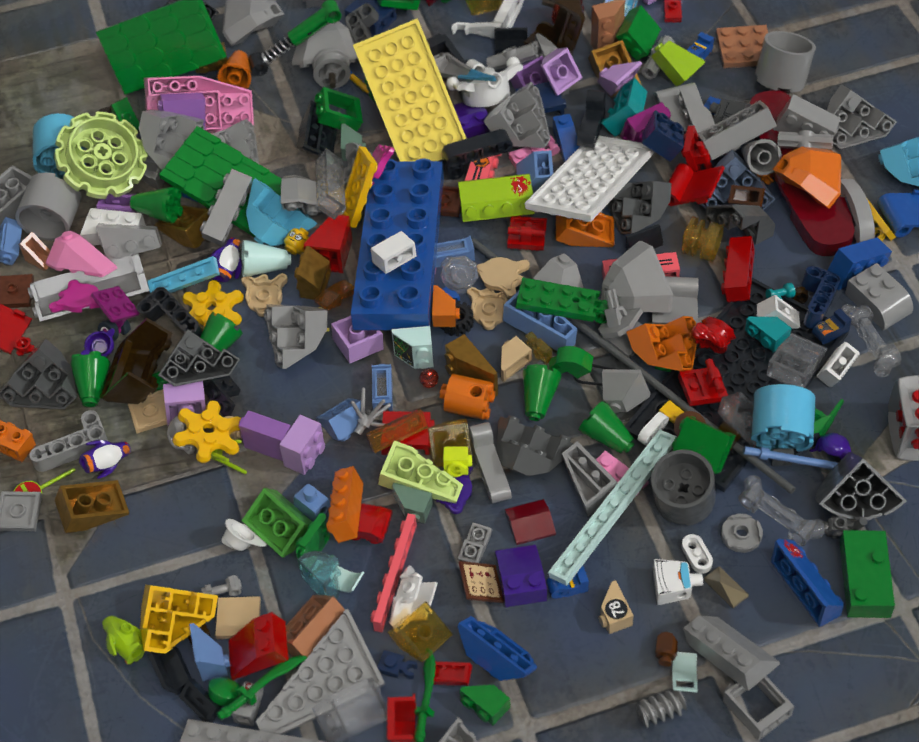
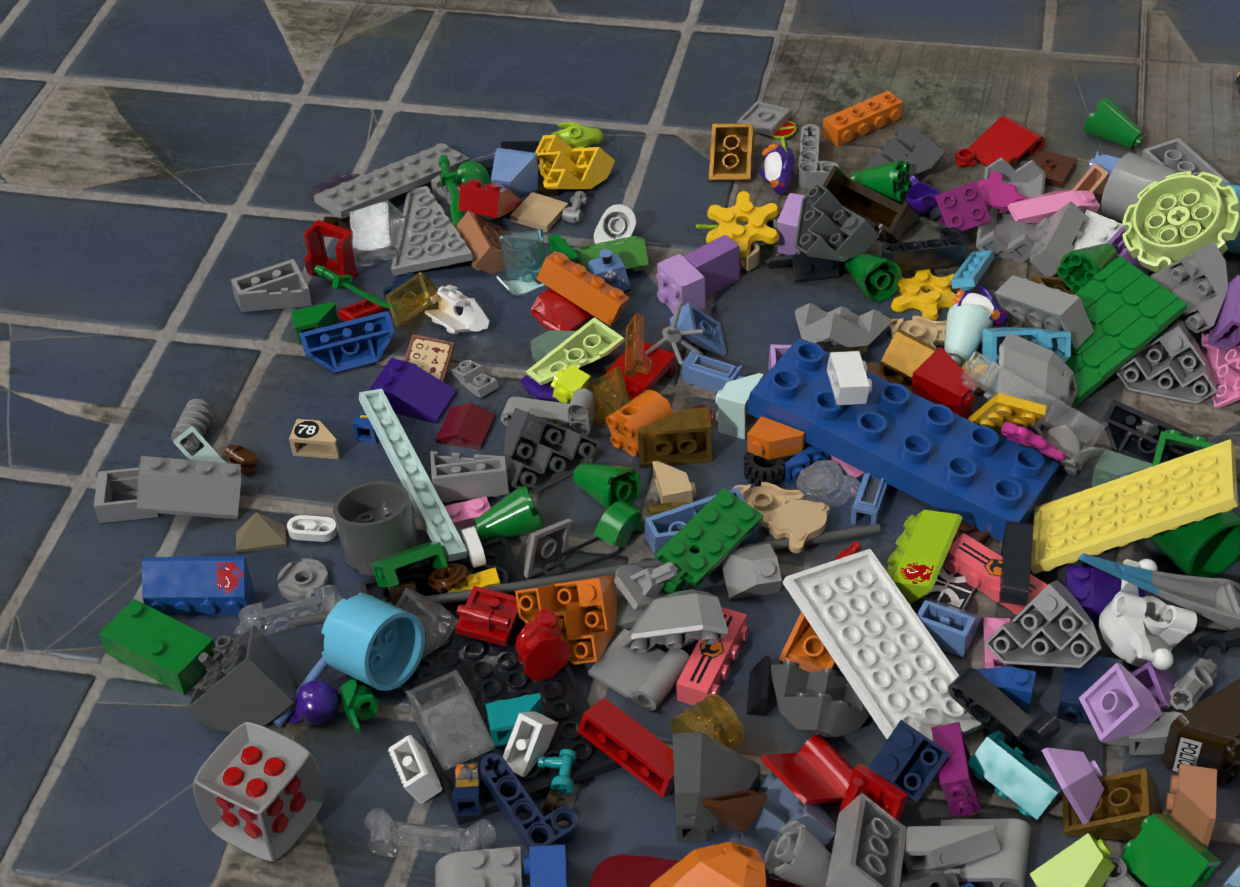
camera: 120 degrees right, 10 degrees down
(391, 580) = (497, 314): coral plate -> none
(674, 580) = (301, 493): white torso -> none

